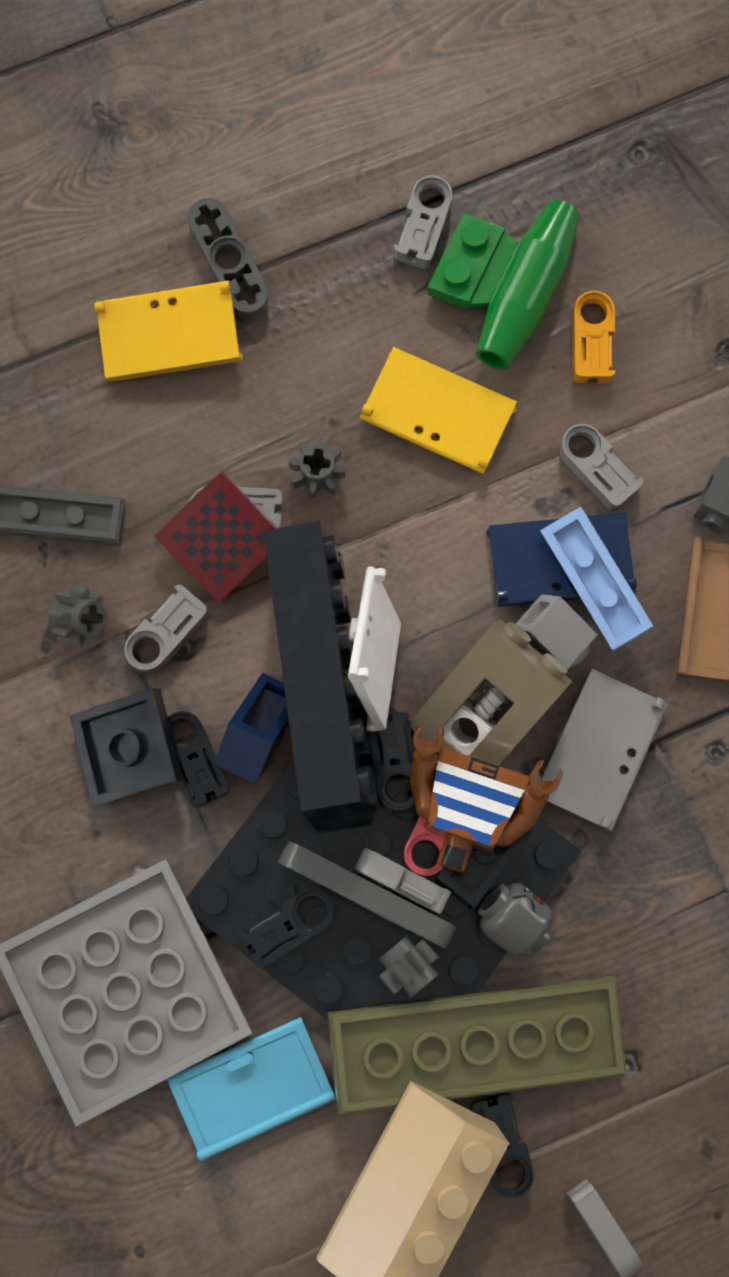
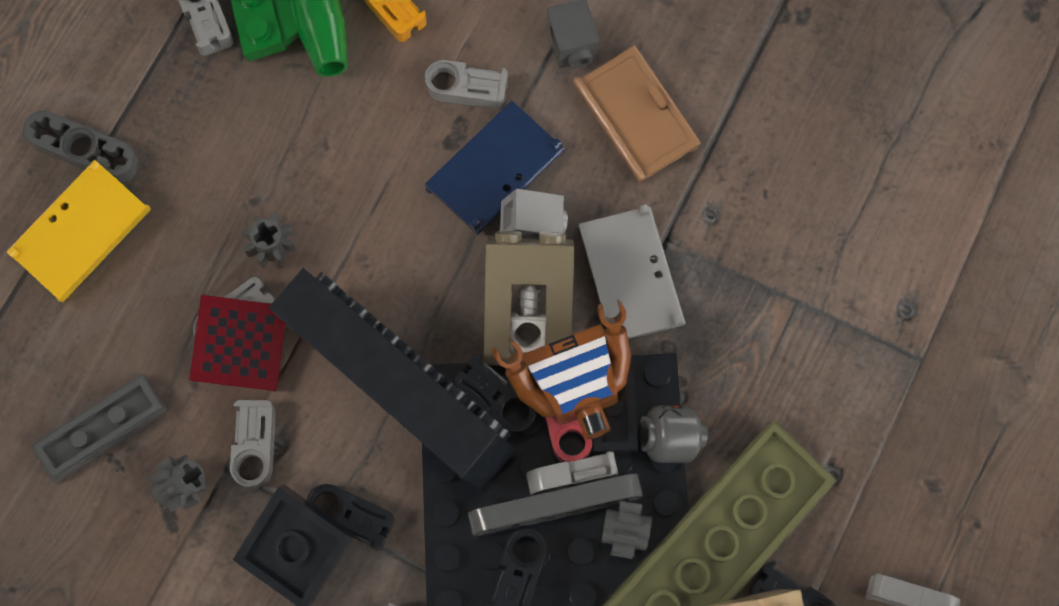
camera: 35 degrees left, 5 degrees down
(255, 730) = (378, 456): dark blue slope -> none
(374, 649) = (417, 328): white door -> none
(440, 404) = (321, 127): yellow door -> none
(597, 579) = (531, 158): light blue plate -> none

